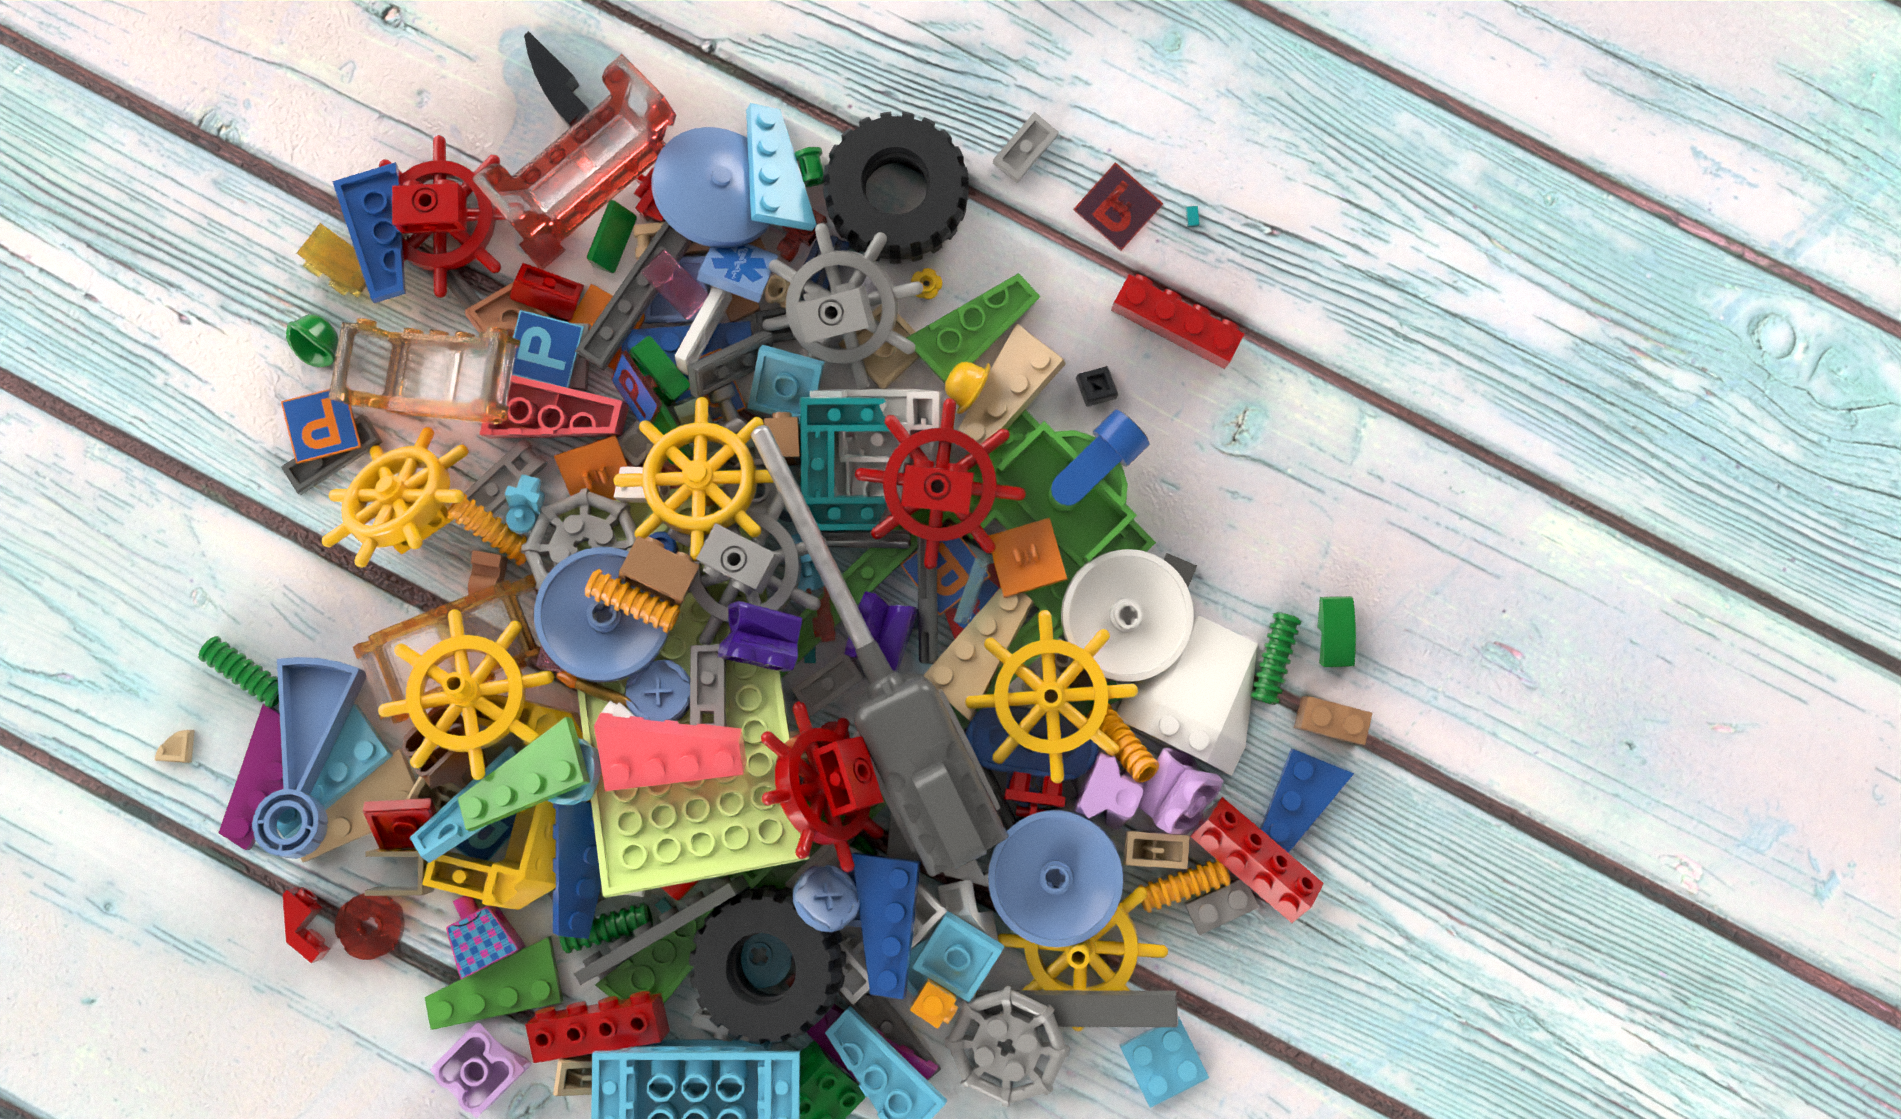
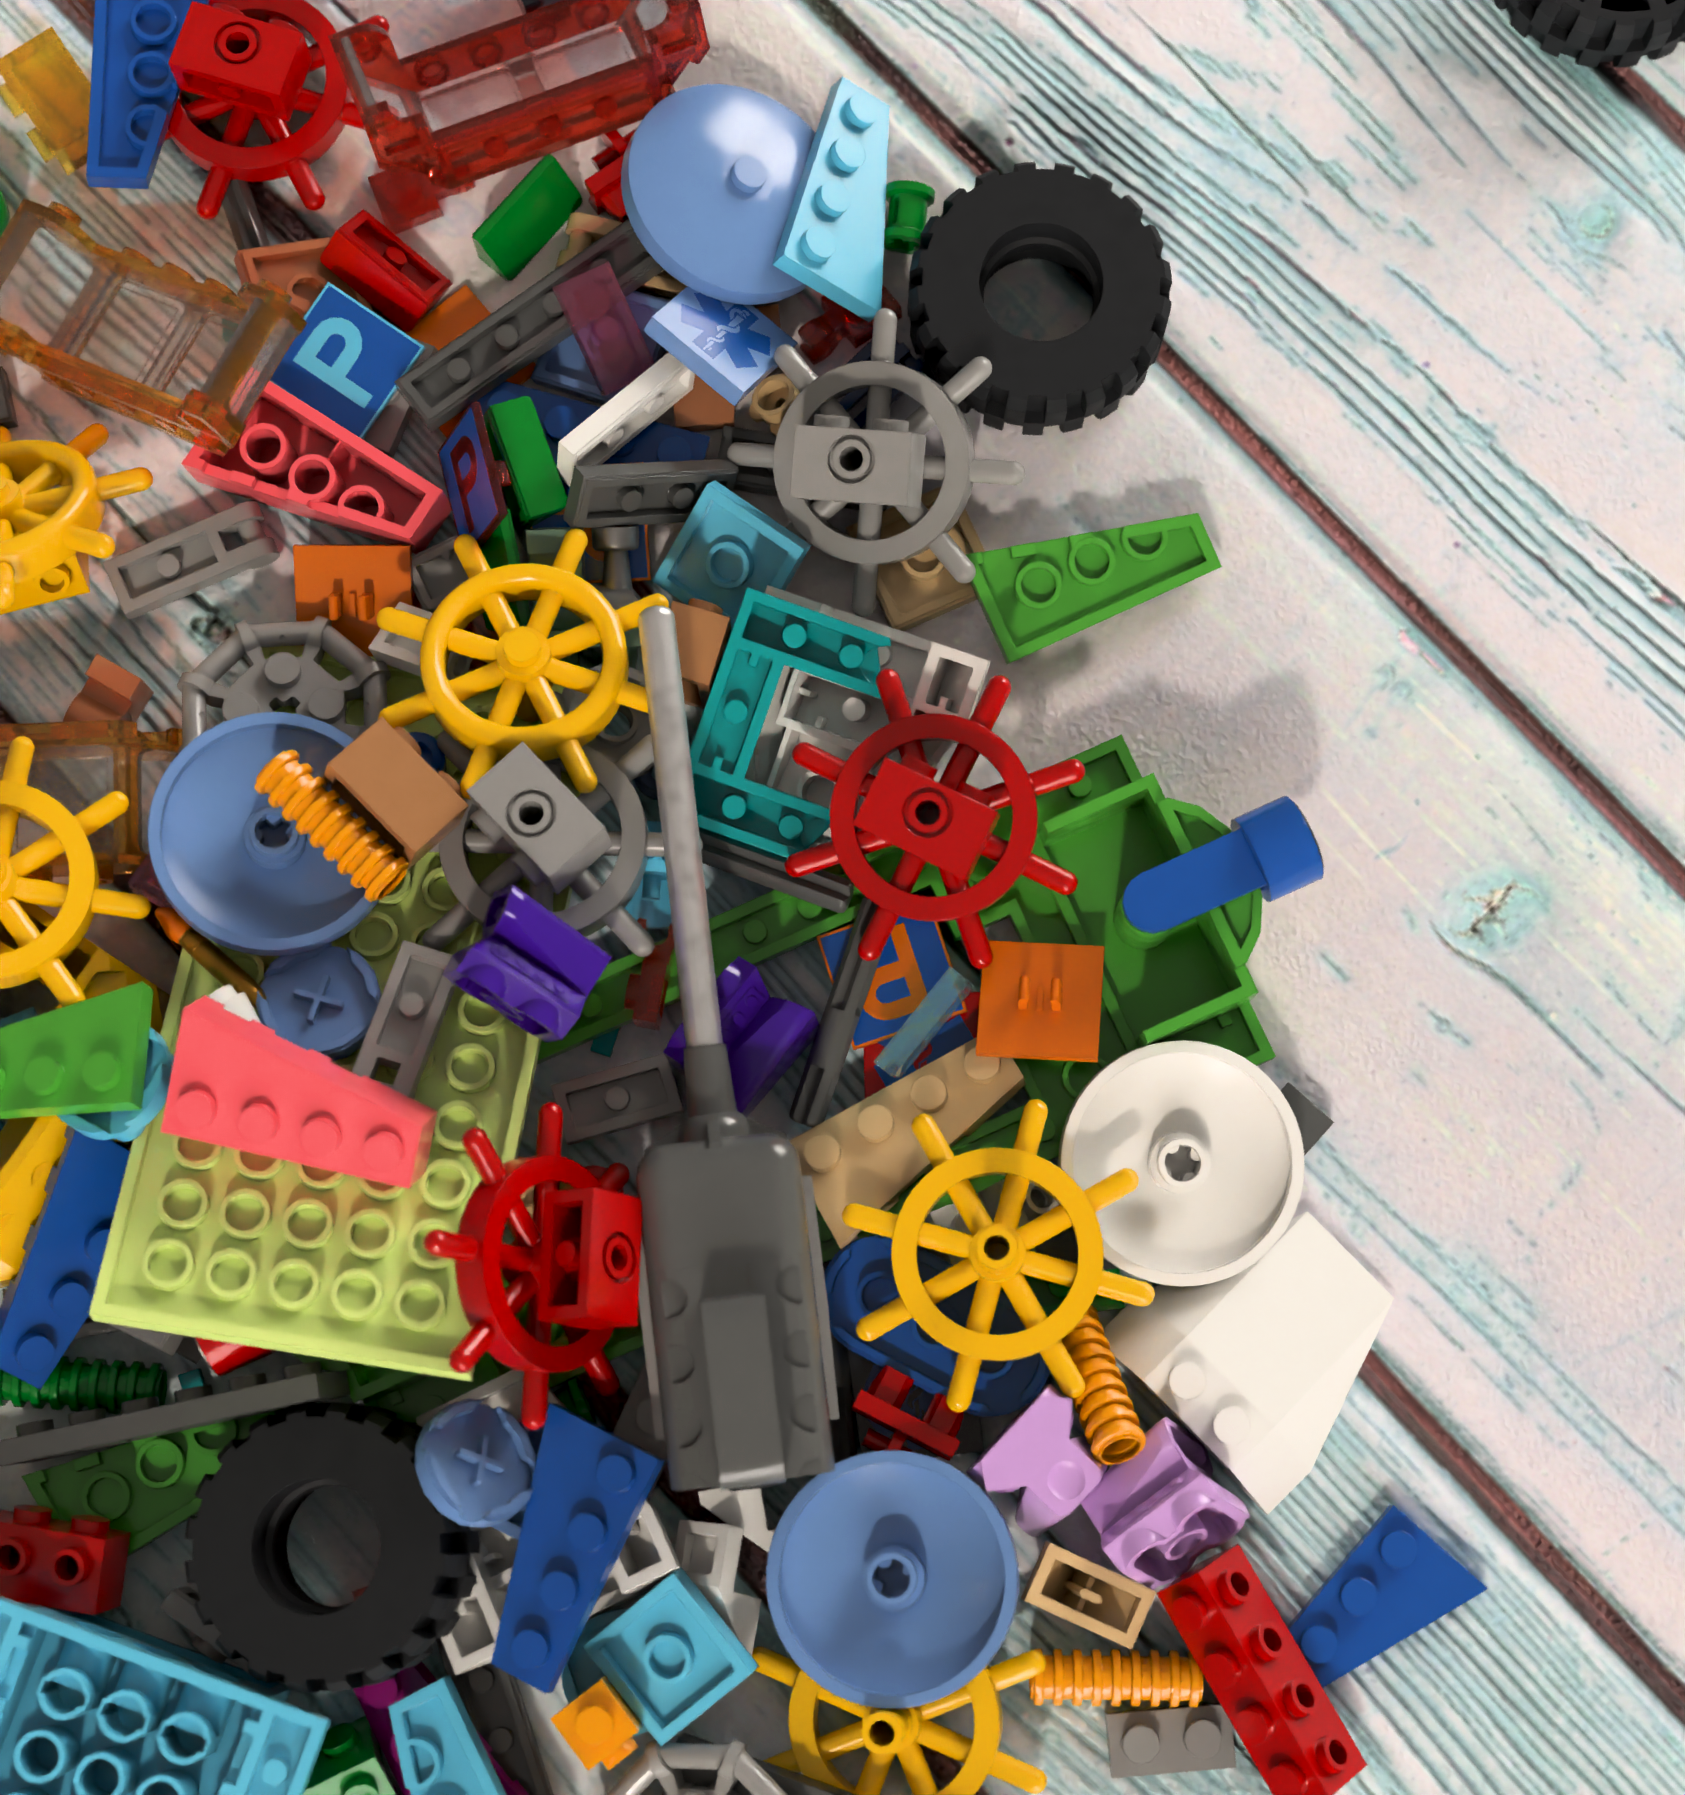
camera: 20 degrees right, 5 degrees down
(489, 528) = (137, 626): light orange piece -> none
(524, 504) = (213, 606): medium azure hips -> none
(775, 969) = (351, 1558): medium azure plate -> none
(935, 281) = (1047, 486): yellow plate -> none
(966, 384) = (1040, 666): yellow hat -> none
(1012, 384) = (1120, 696): tan wing -> none
(1025, 147) = (1284, 309): light grey plate -> none
(1096, 386) = (1265, 753): black tile -> none
(1118, 206) = (1408, 463): clear red piece -> none
(1177, 321) = (1444, 689): red brick -> none
(1192, 216) = (1532, 523): teal piece -> none
(1276, 658) = (1417, 1334): green piece -> none
(1333, 720) = (1482, 1479): medium nougat brick -> none
(1338, 631) = (1544, 1325): green slope -> none

